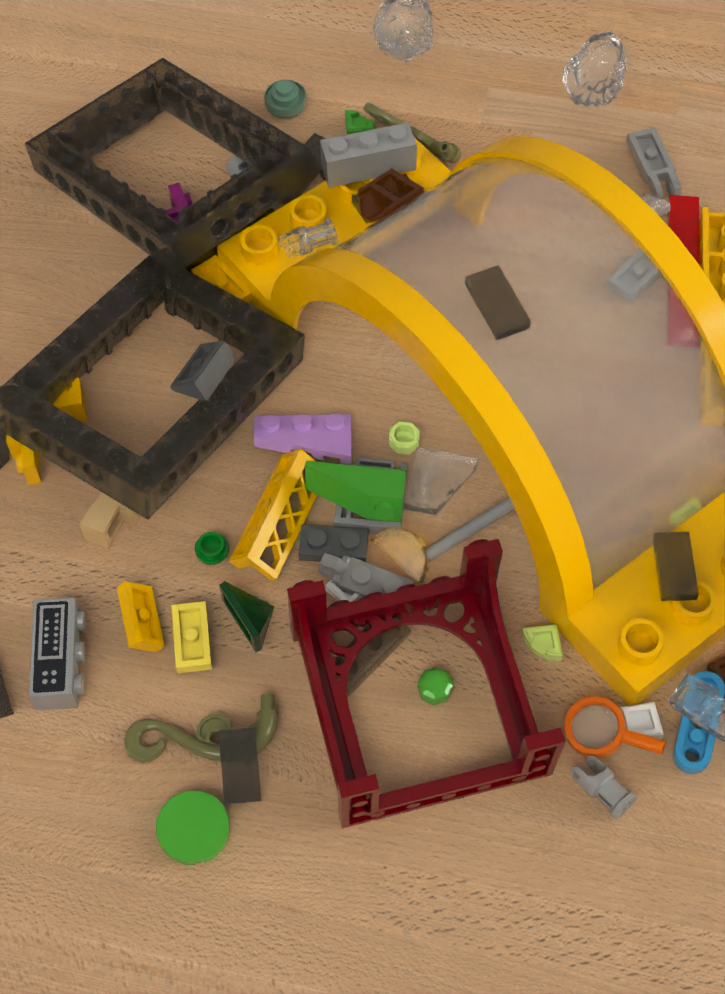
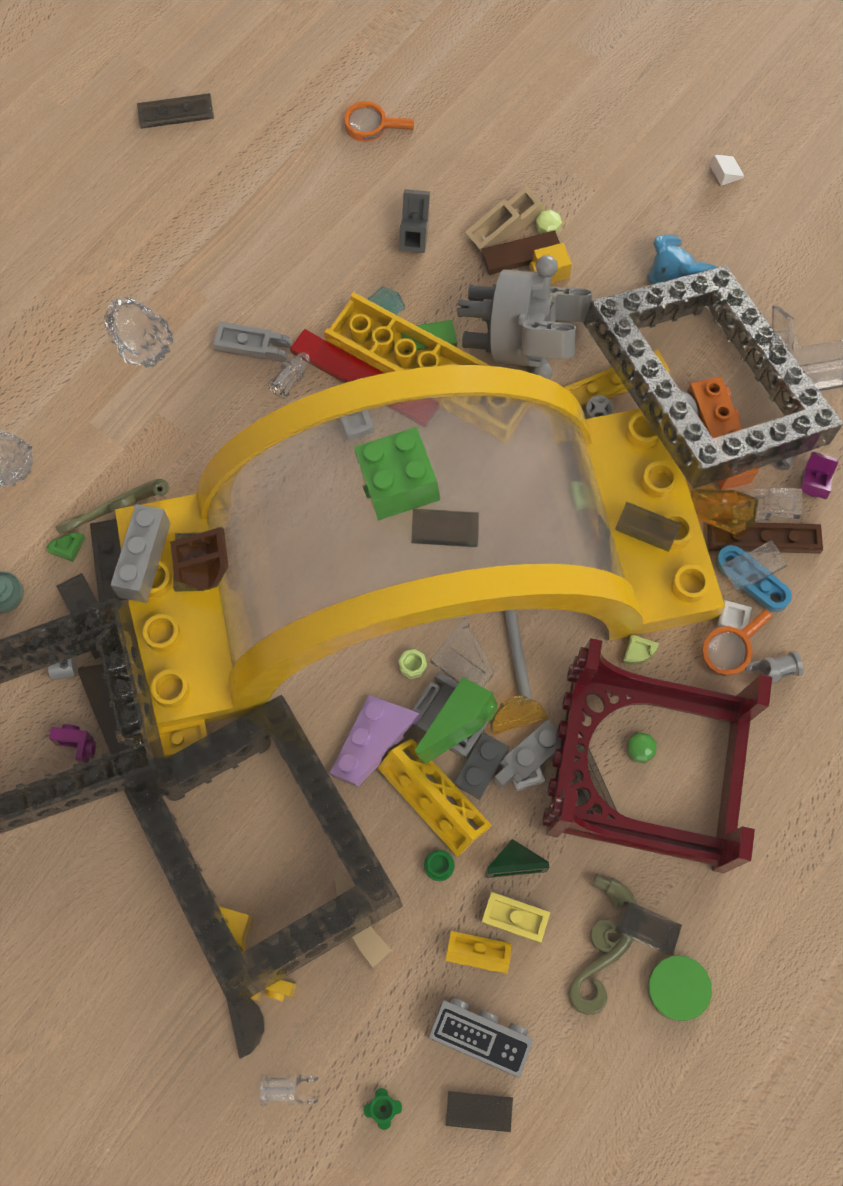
camera: 65 degrees left, 10 degrees up
(204, 370) = (289, 794): dark grey slope -> none
(307, 239) = (200, 643): clear piece -> none
(523, 233) = (397, 473): none -> bright green brick

